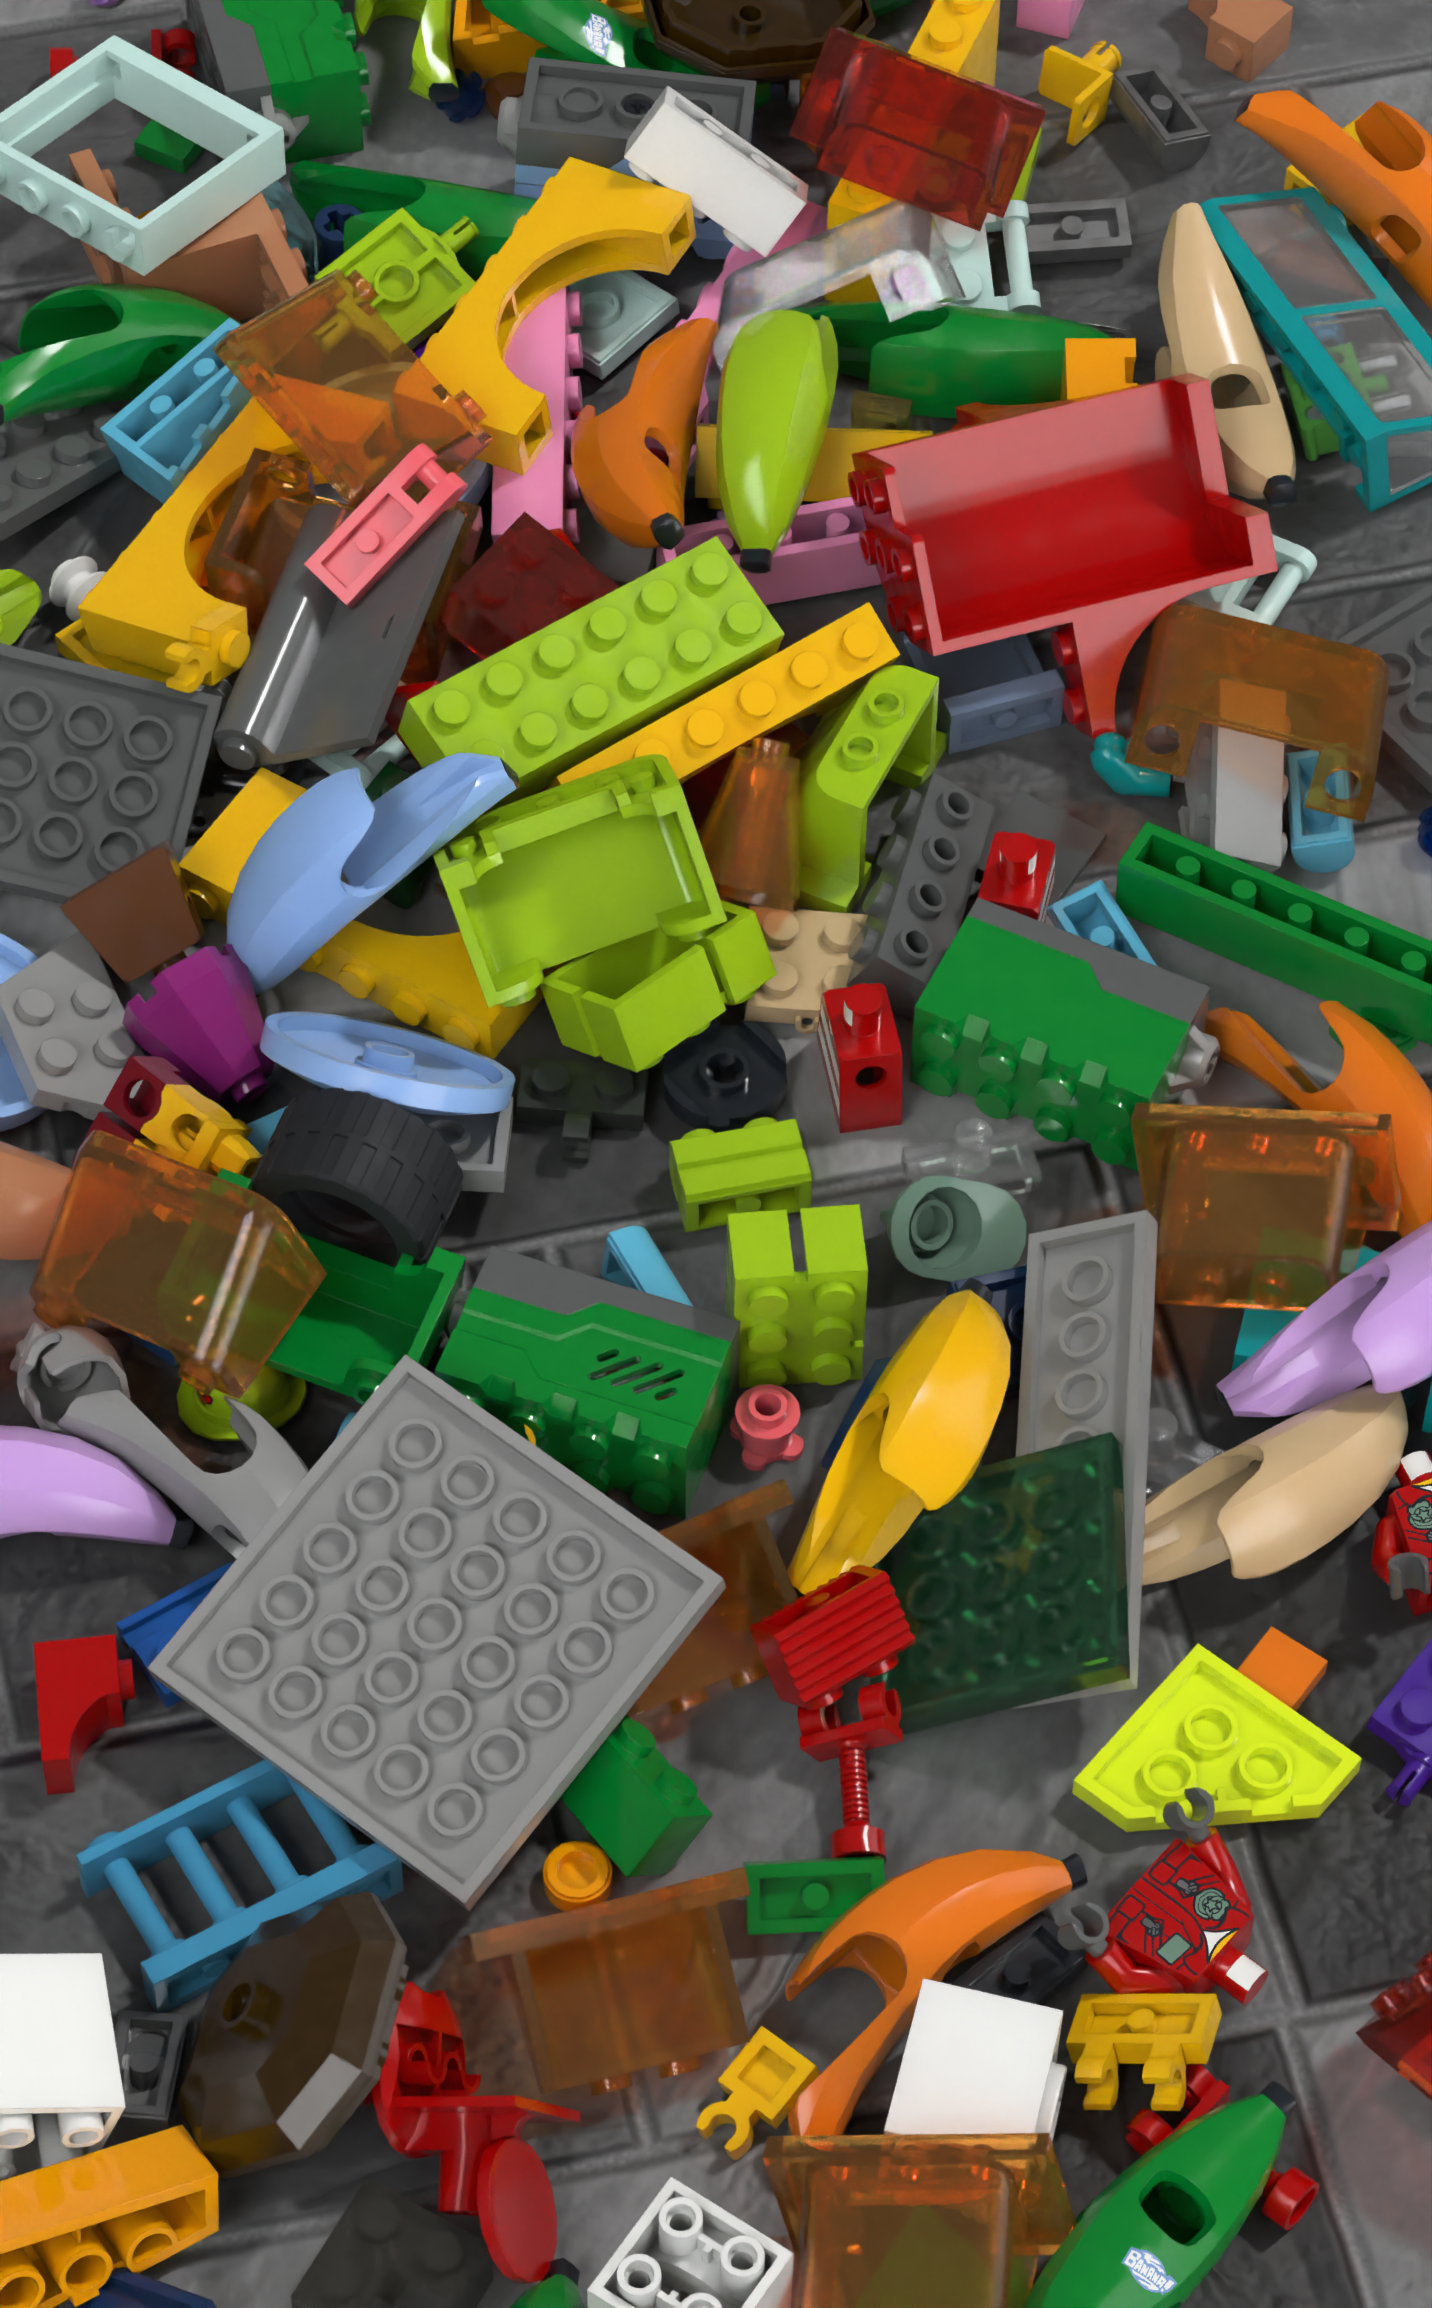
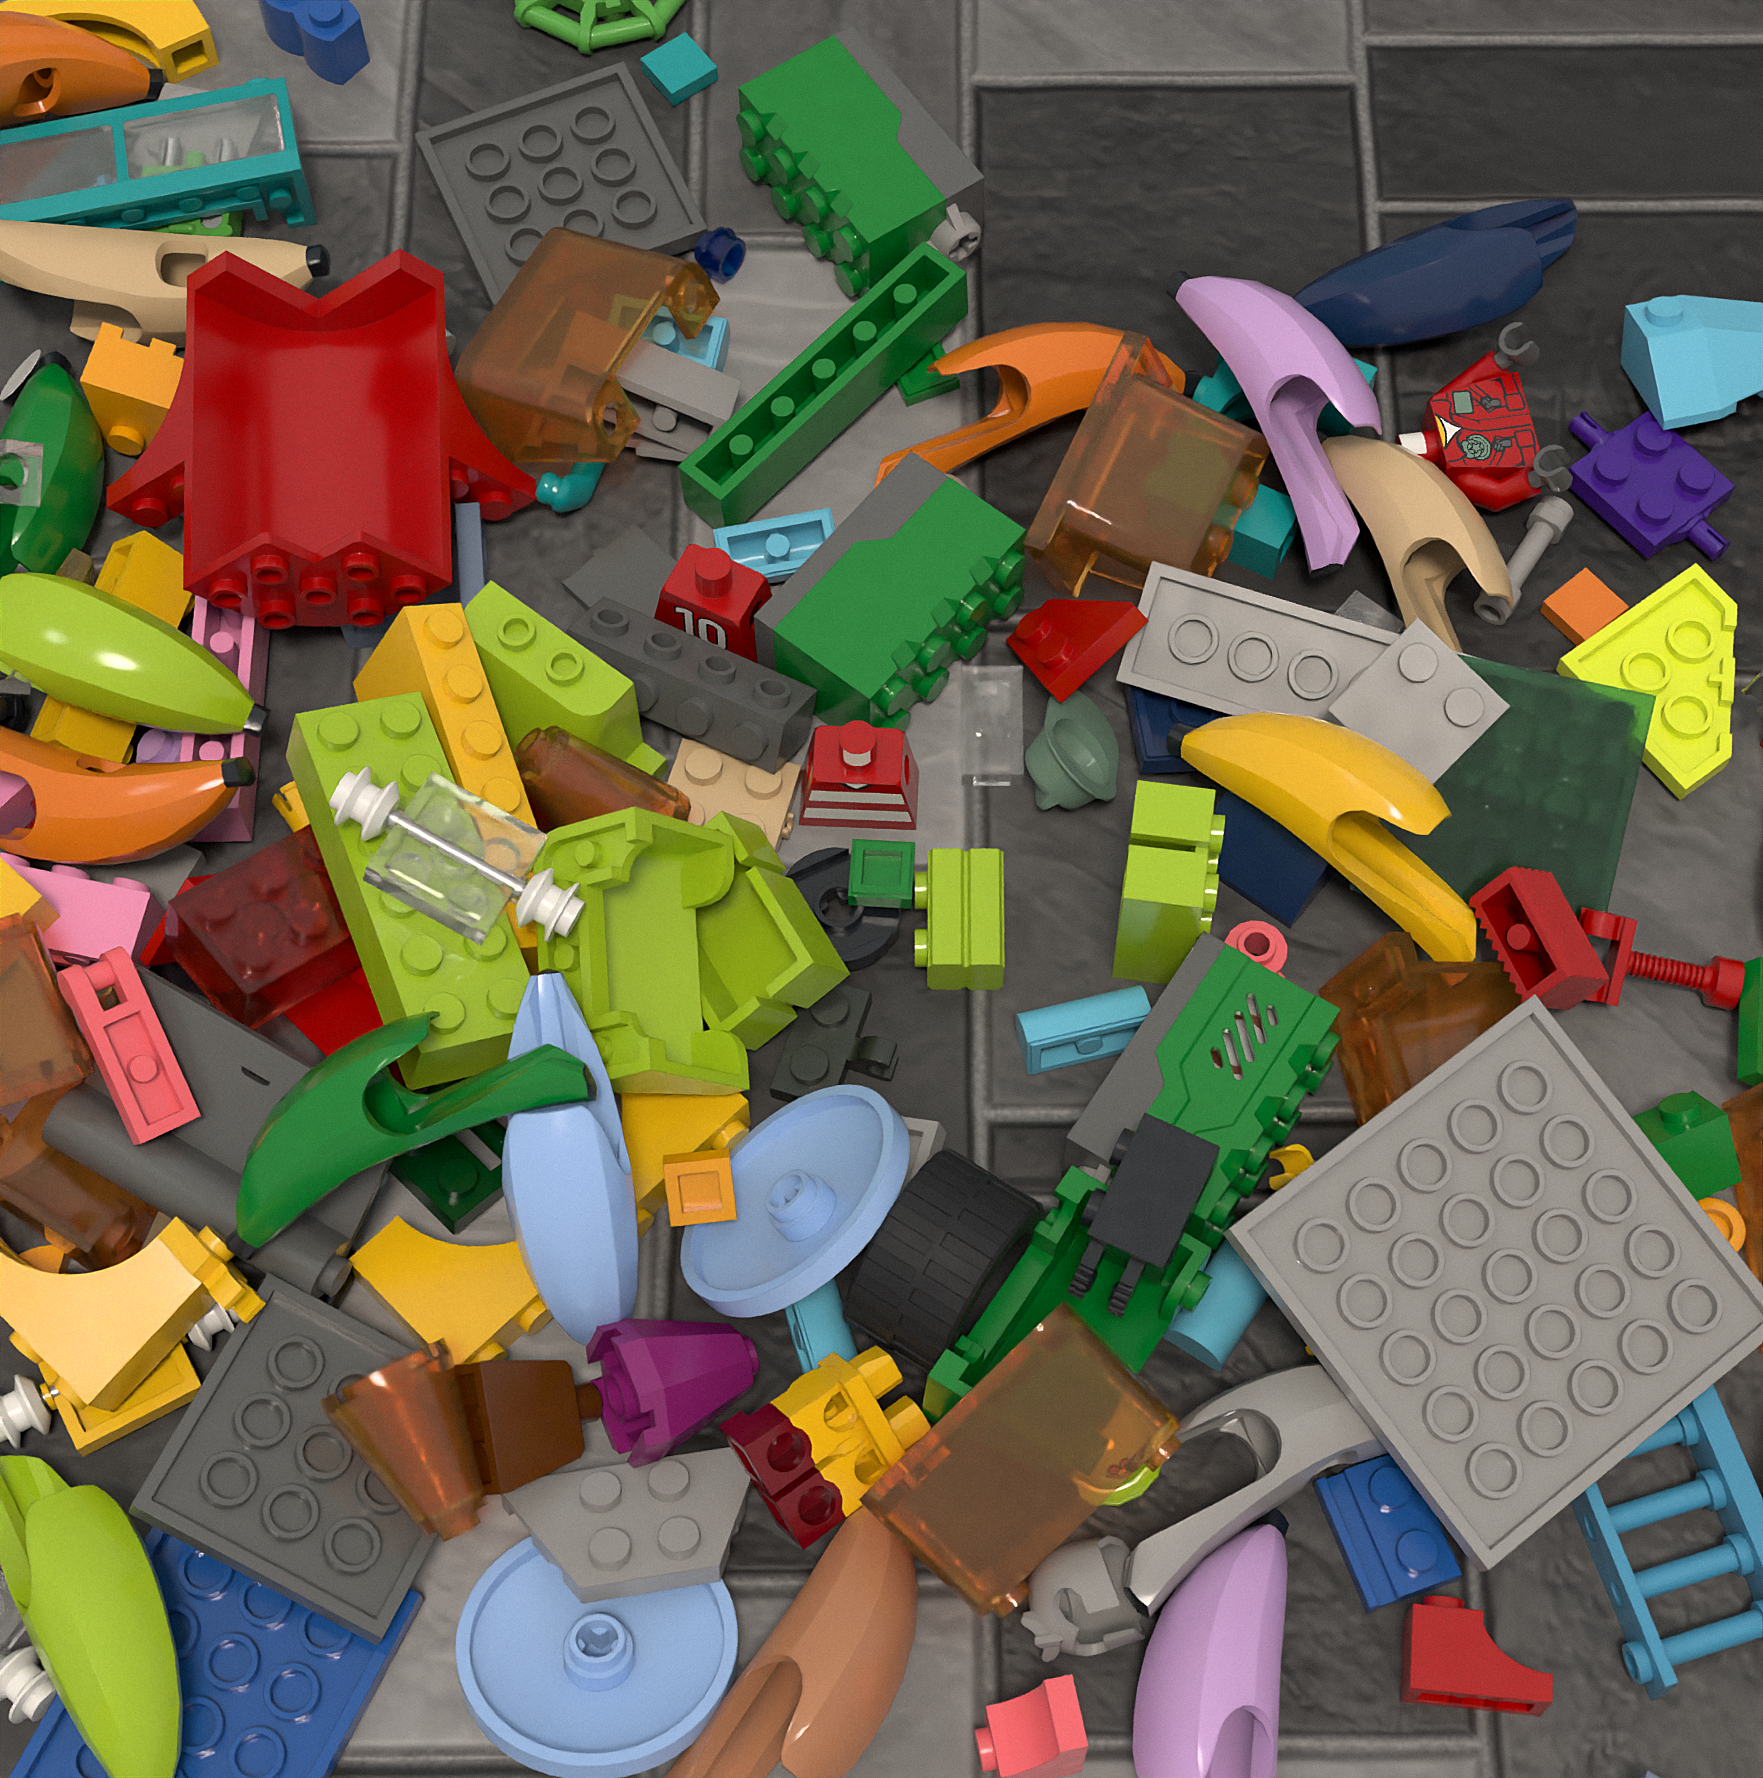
camera: 75 degrees left, 10 degrees up
(92, 827) = (416, 1438): none -> clear orange cone
(352, 683) = (357, 1115): none -> green piece
(391, 1001) = (699, 1187): none -> light orange plate
(419, 1303) = (1144, 1208): none -> black hinge
(601, 676) = (455, 856): none -> clear plate
(762, 1089) = (881, 873): none -> green tile
(1047, 1465) = (1420, 702): none -> light grey plate
(1060, 1187) = (1073, 639): none -> red wing
(1377, 1622) = (1544, 526): none -> light grey bar

